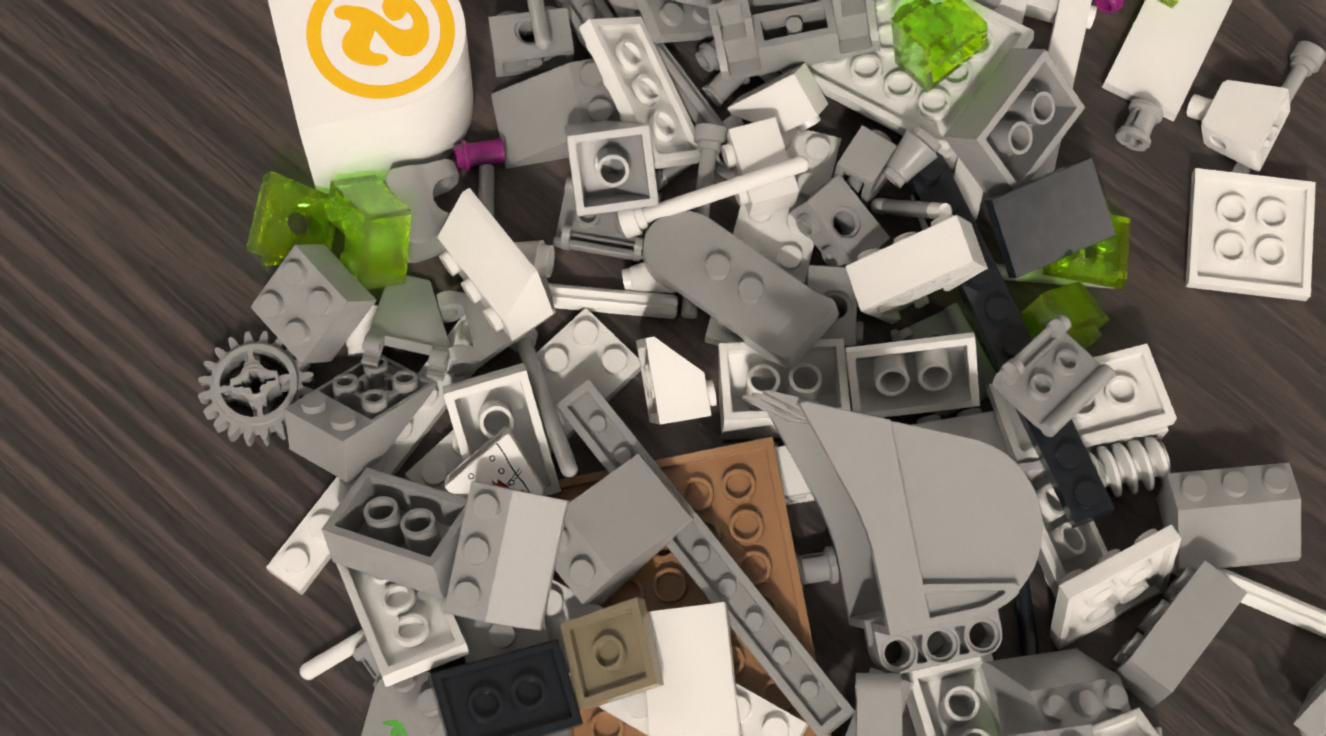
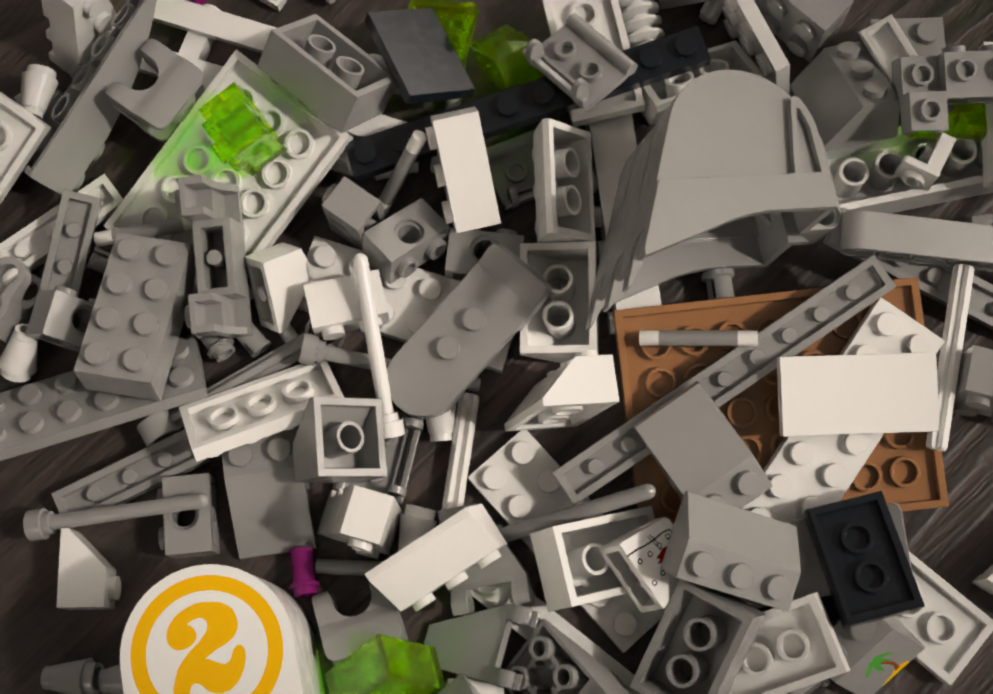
camera: 80 degrees left, 5 degrees up
(527, 198) = (361, 519): none -> white wedge
(611, 654) = (821, 461): dark tan plate -> none
(744, 522) = (698, 337): none -> light grey bar
(911, 156) = (355, 164): light grey cone -> none

